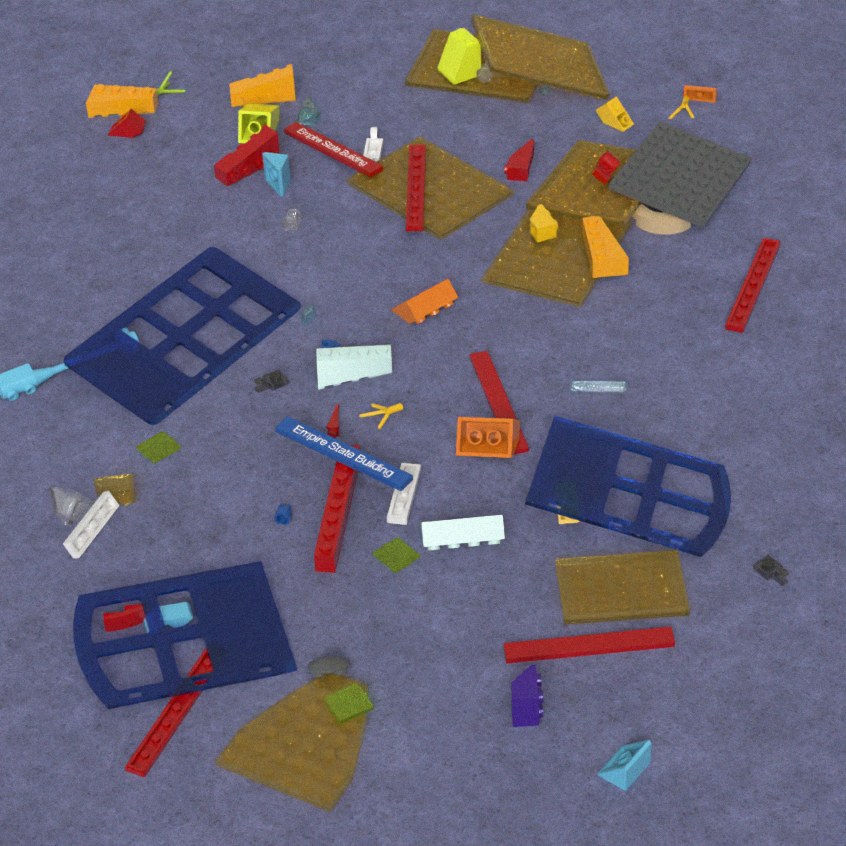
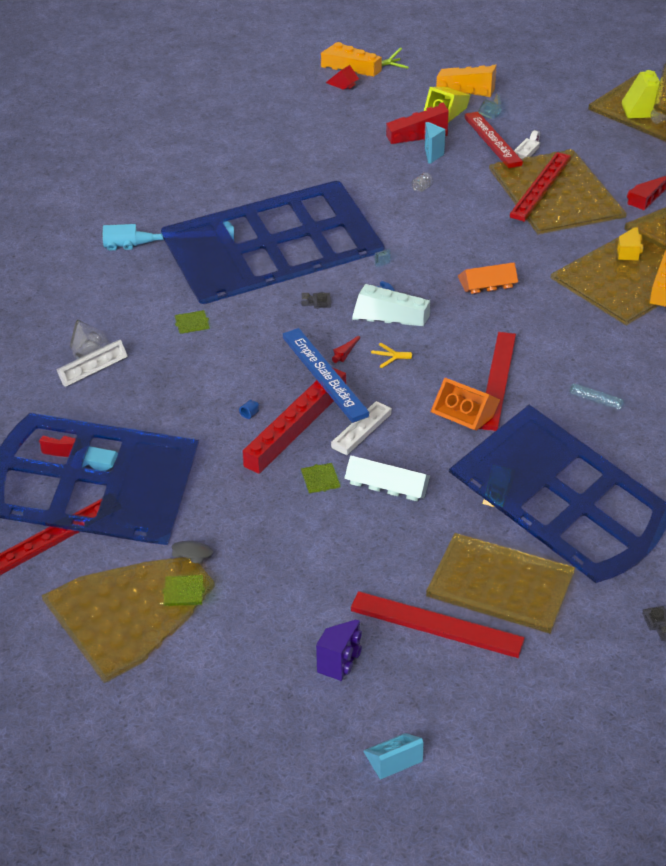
camera: 25 degrees right, 0 degrees up
(120, 486) = (134, 342): clear yellow slope -> none

